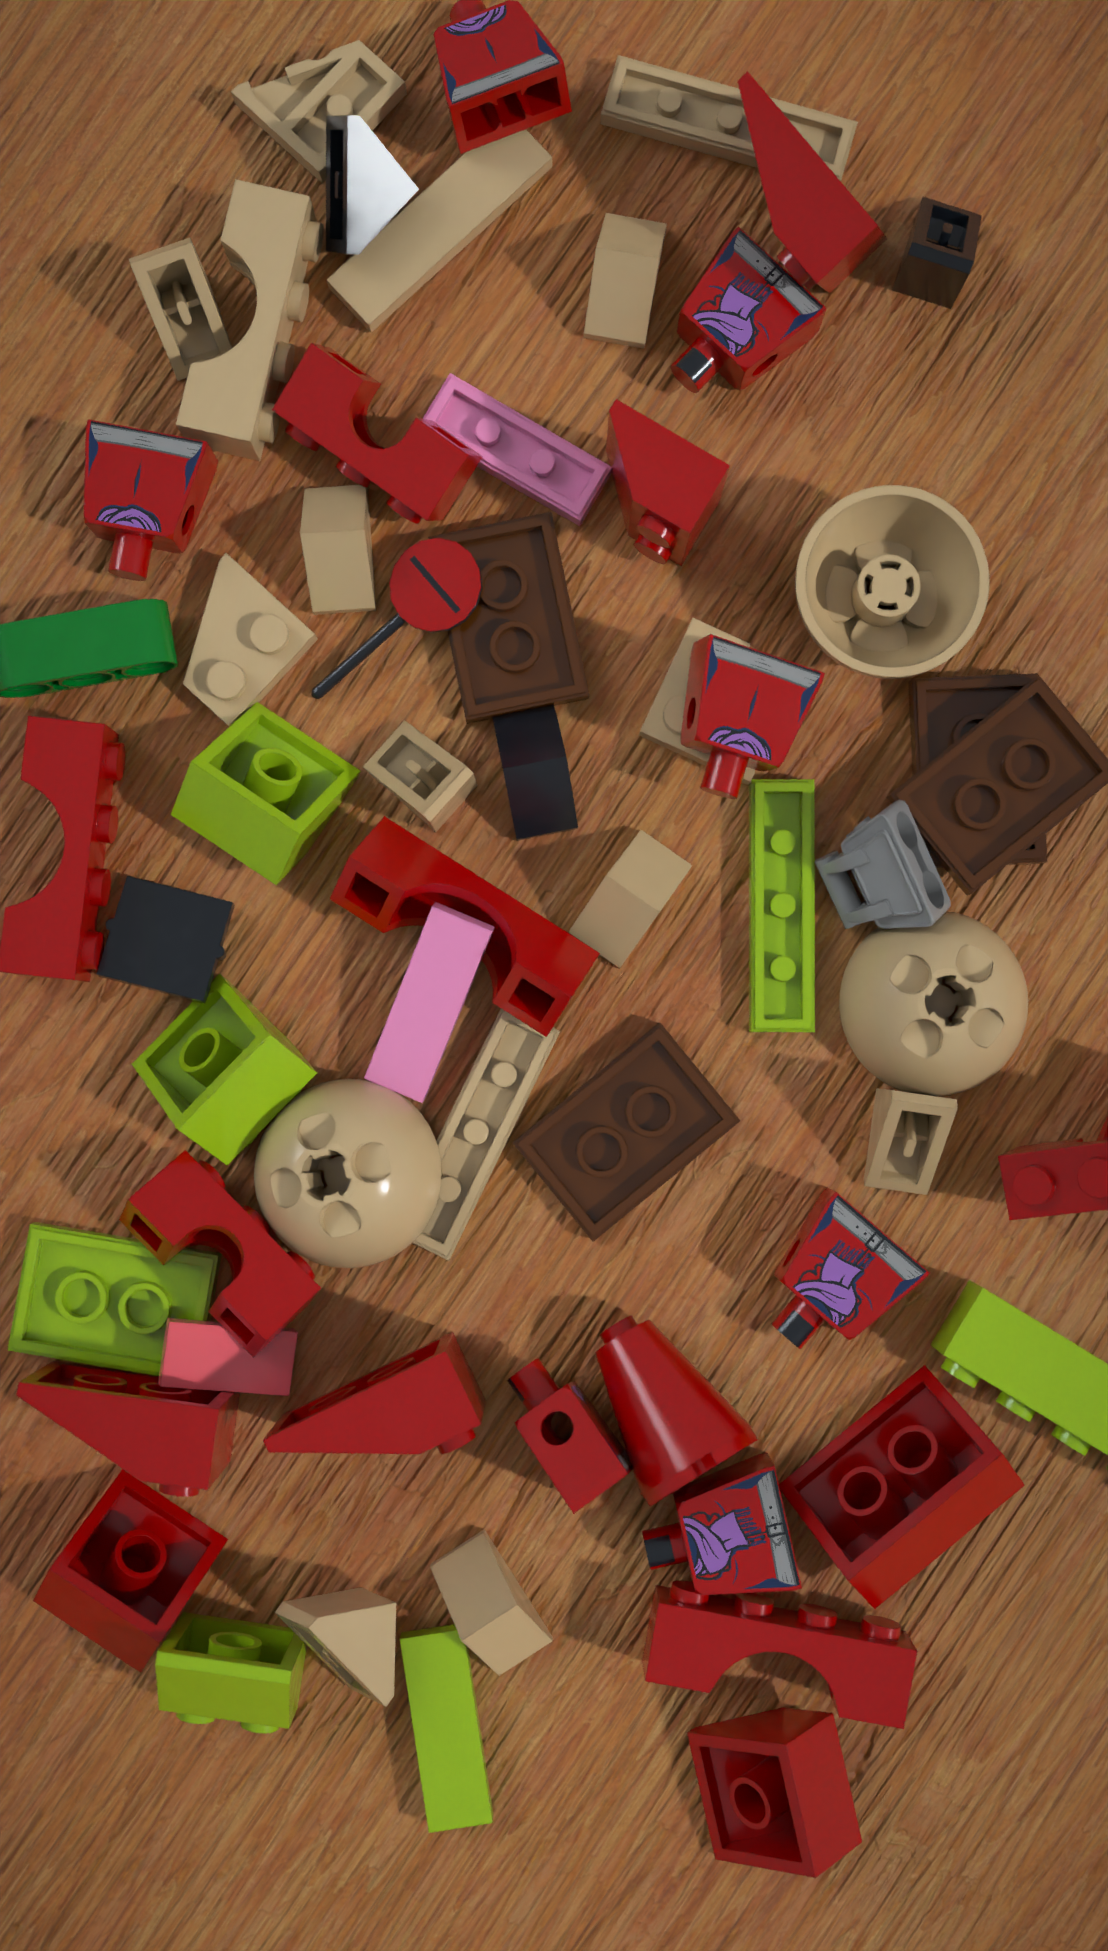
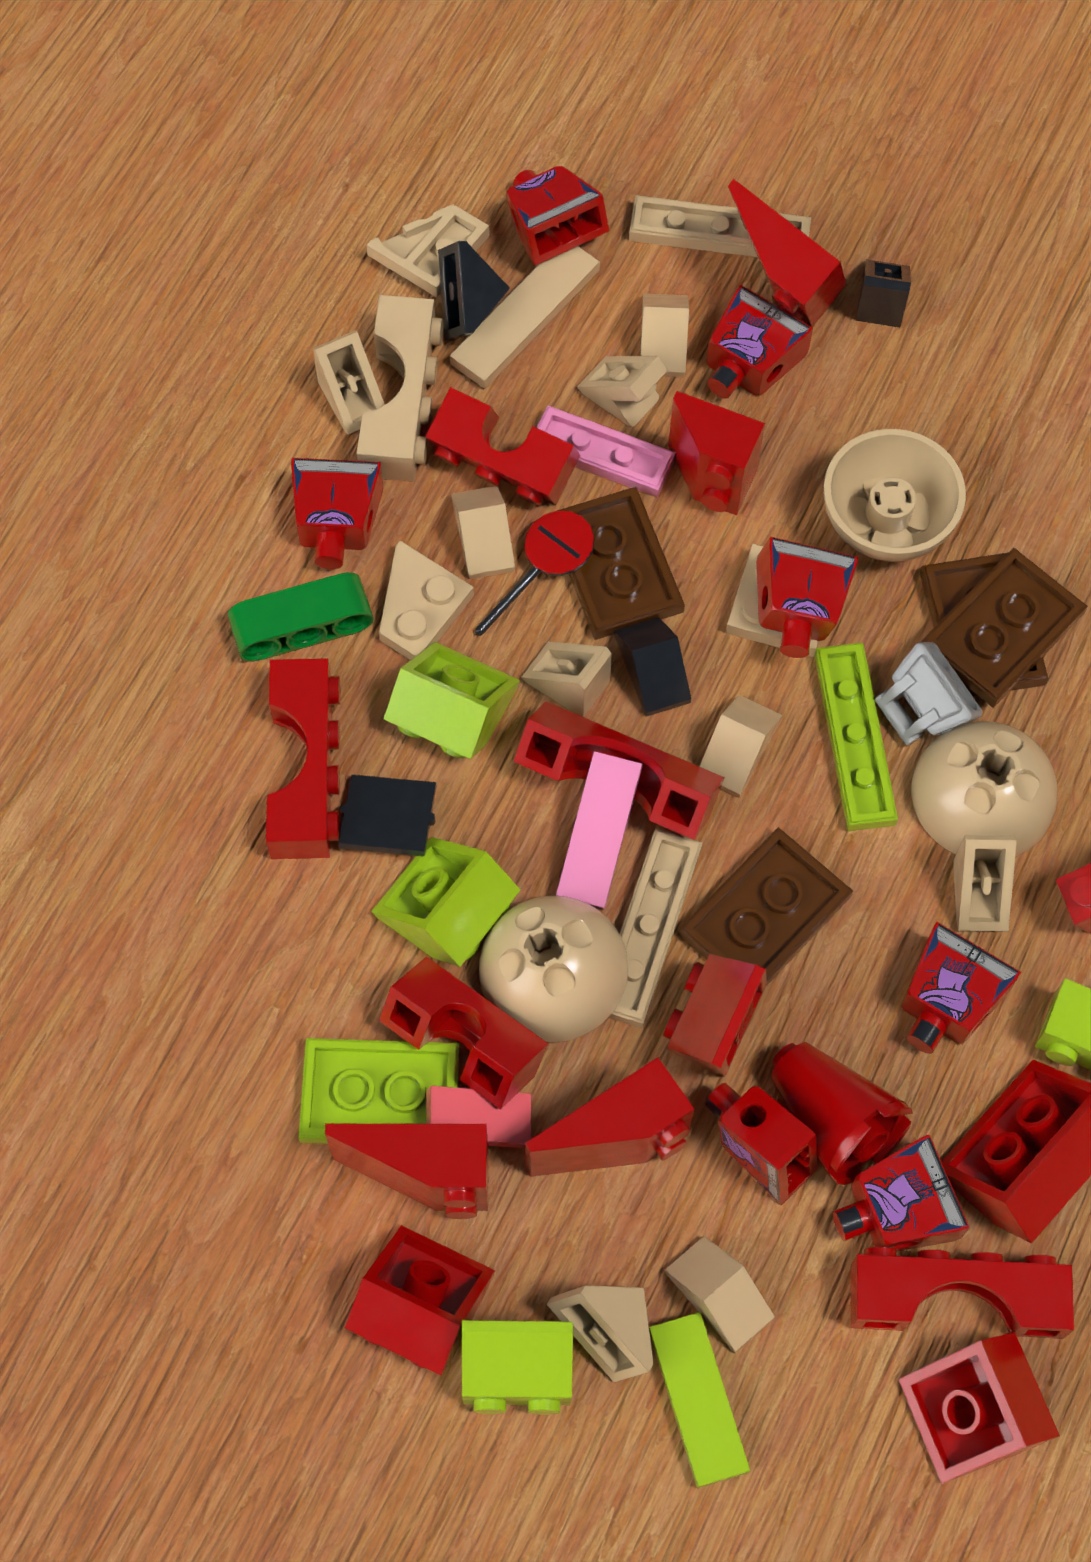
camera: 10 degrees left, 20 degrees down
(534, 1288) = (716, 1012): none -> red slope
(556, 357) = (625, 385): none -> tan slope

